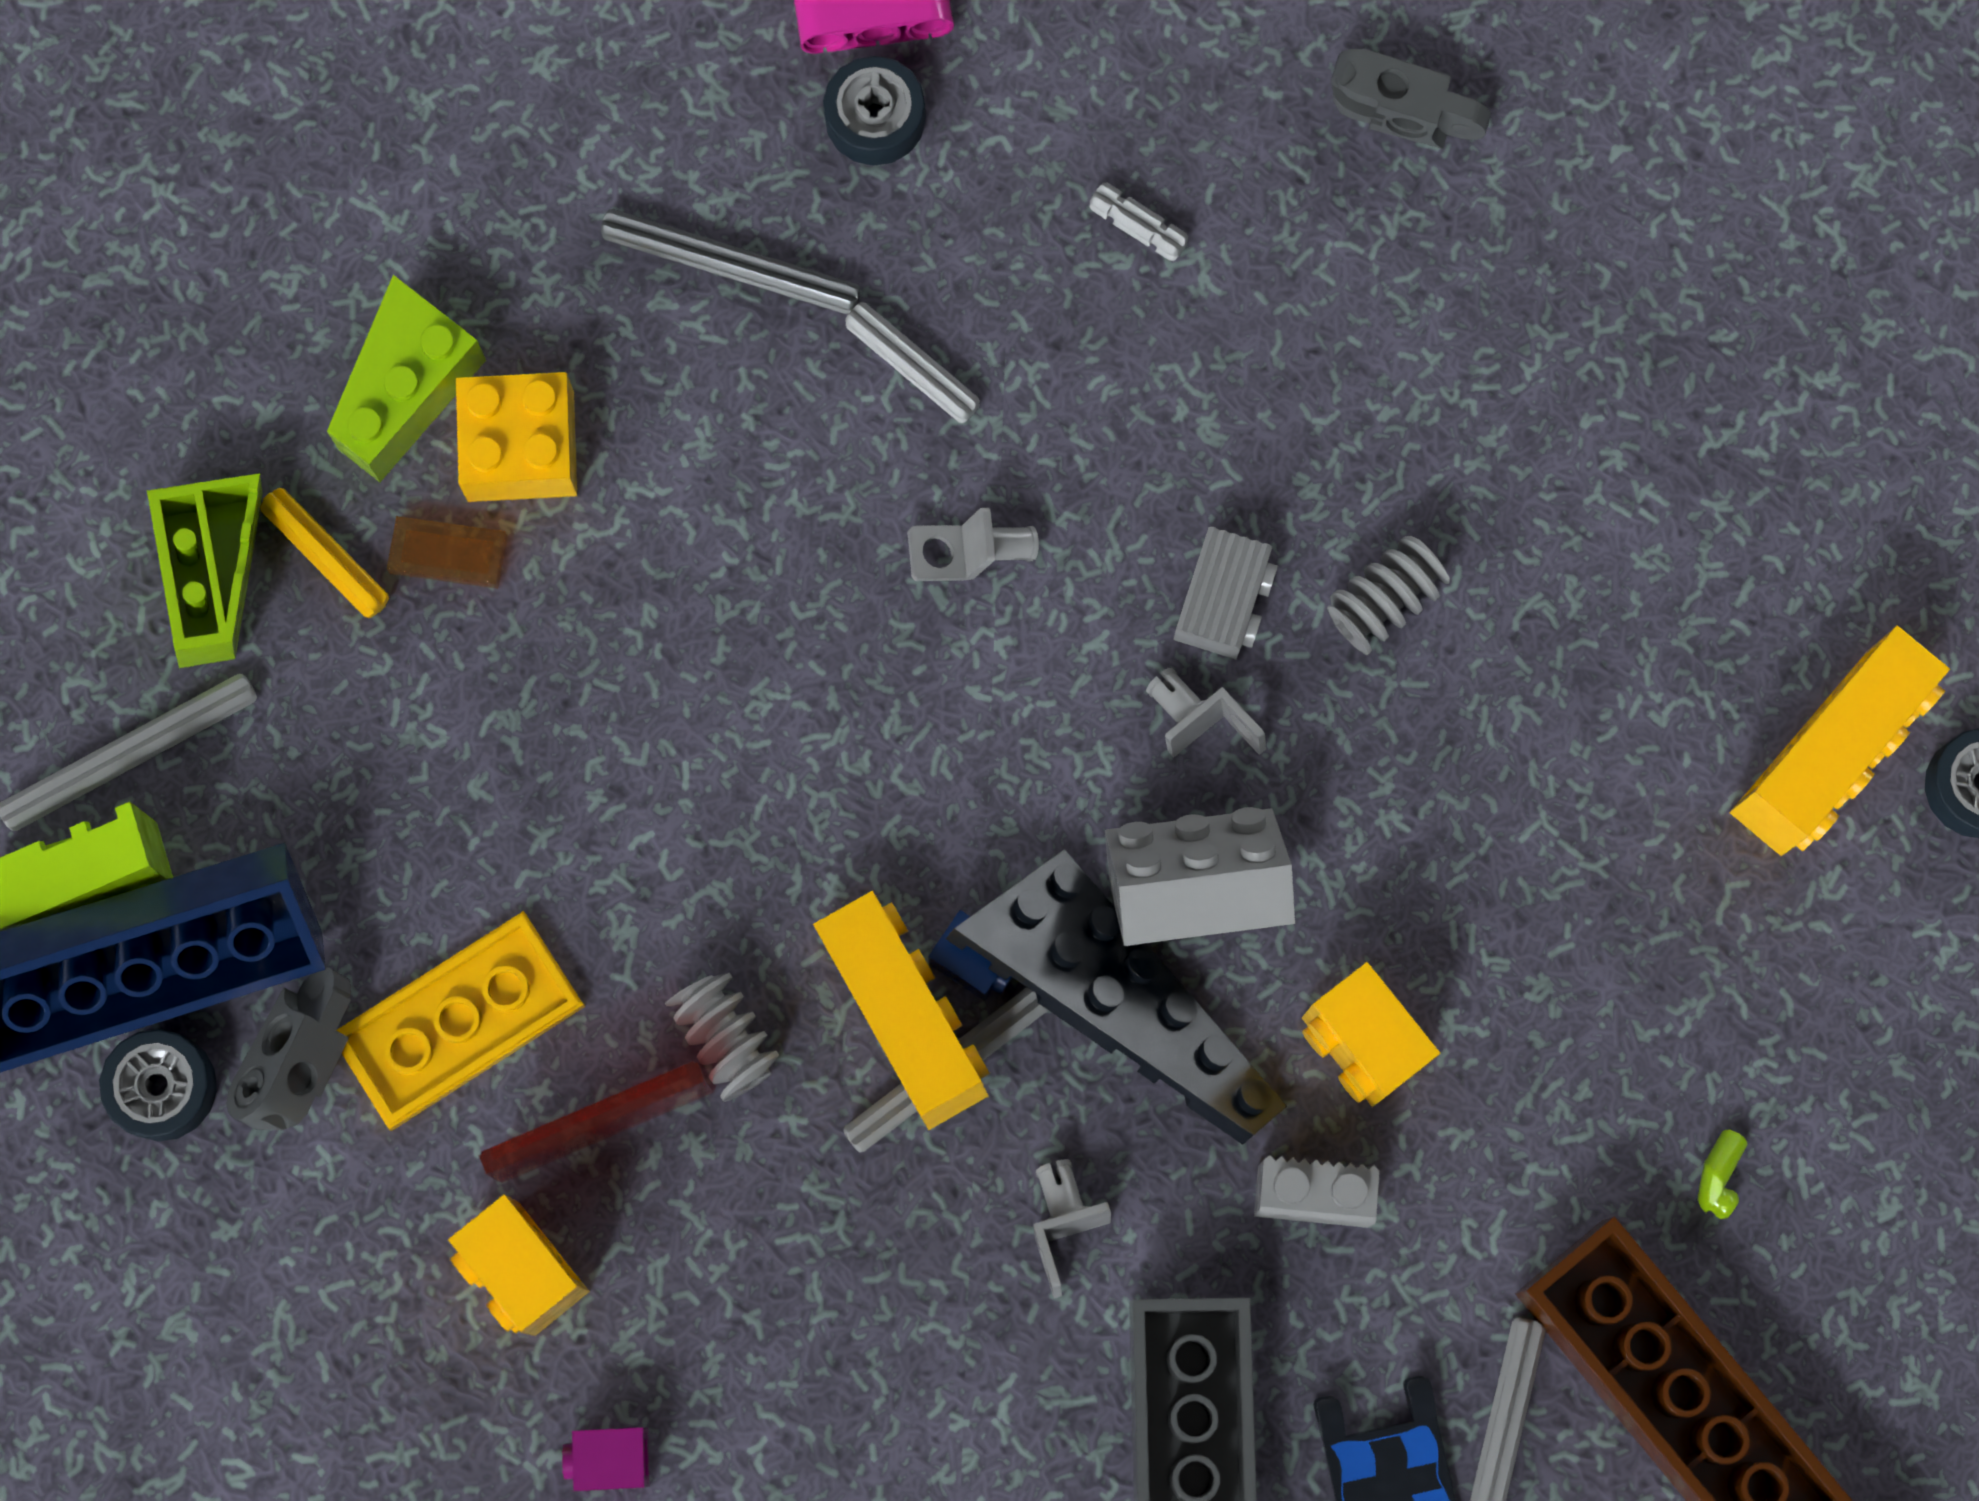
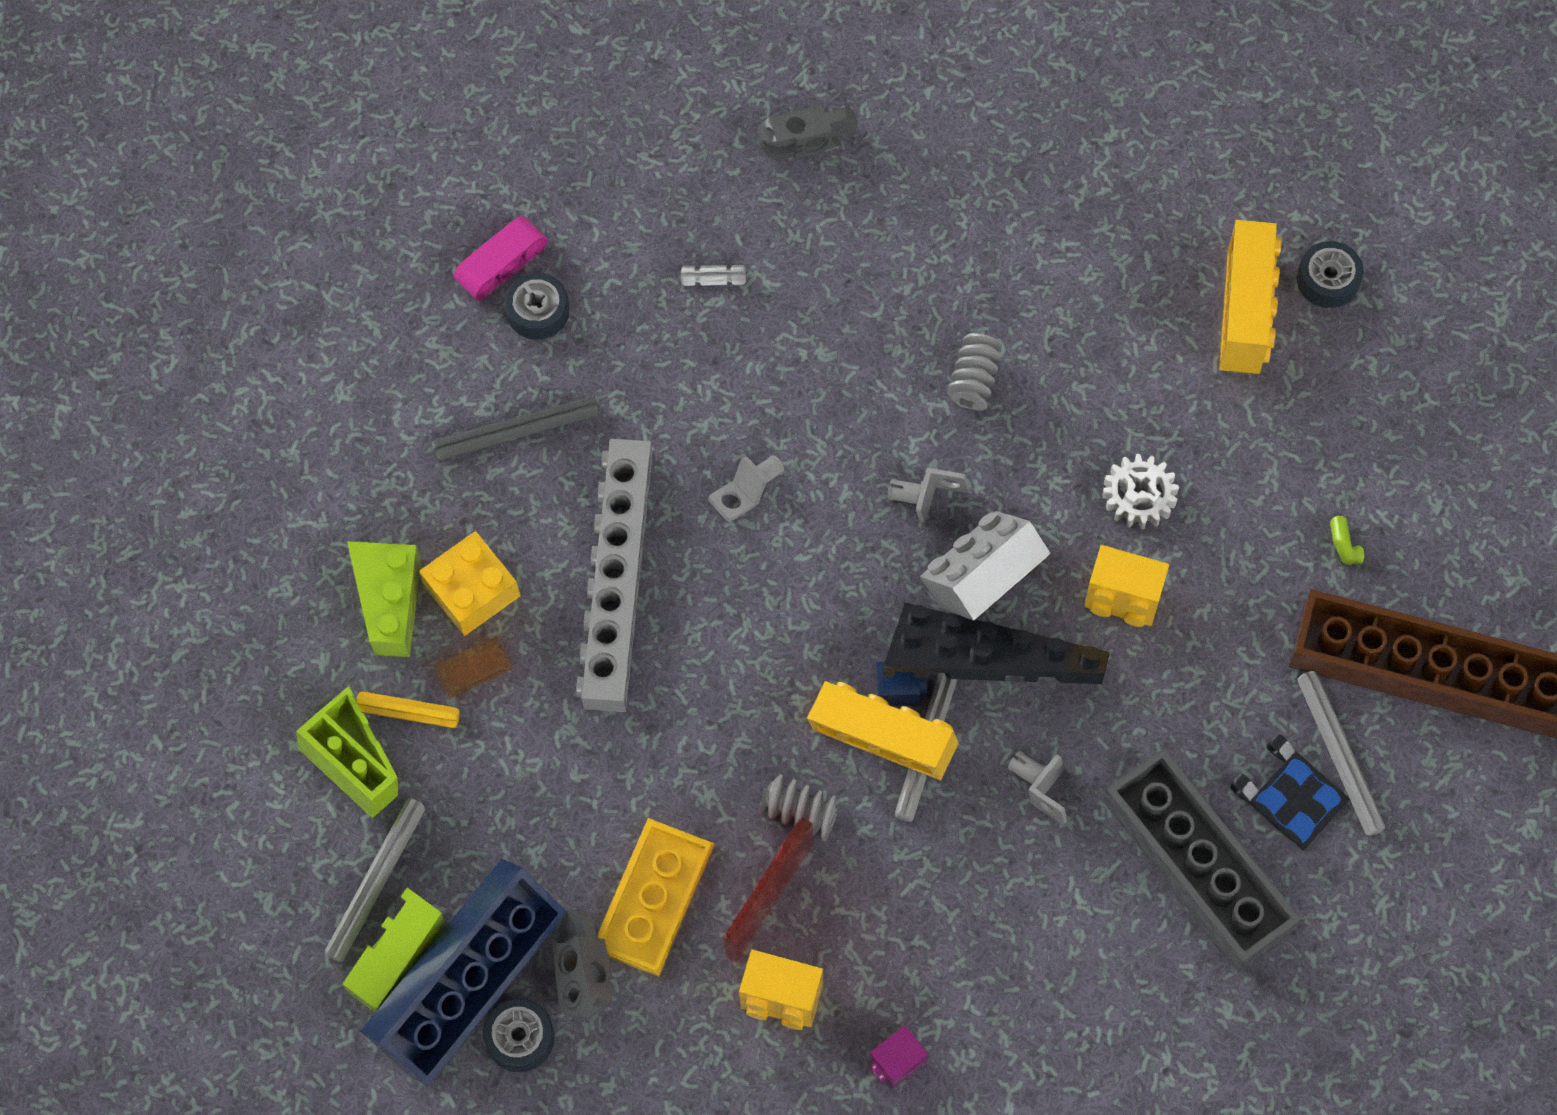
camera: 30 degrees left, 10 degrees down
(602, 709) = (611, 692): none -> light grey brick
(912, 362) = (648, 417): light grey axle -> none
(1223, 593) = (892, 425): light grey brick -> none
(1317, 1192) = (1156, 681): light grey brick -> none
(1514, 907) = (1145, 505): none -> white gear

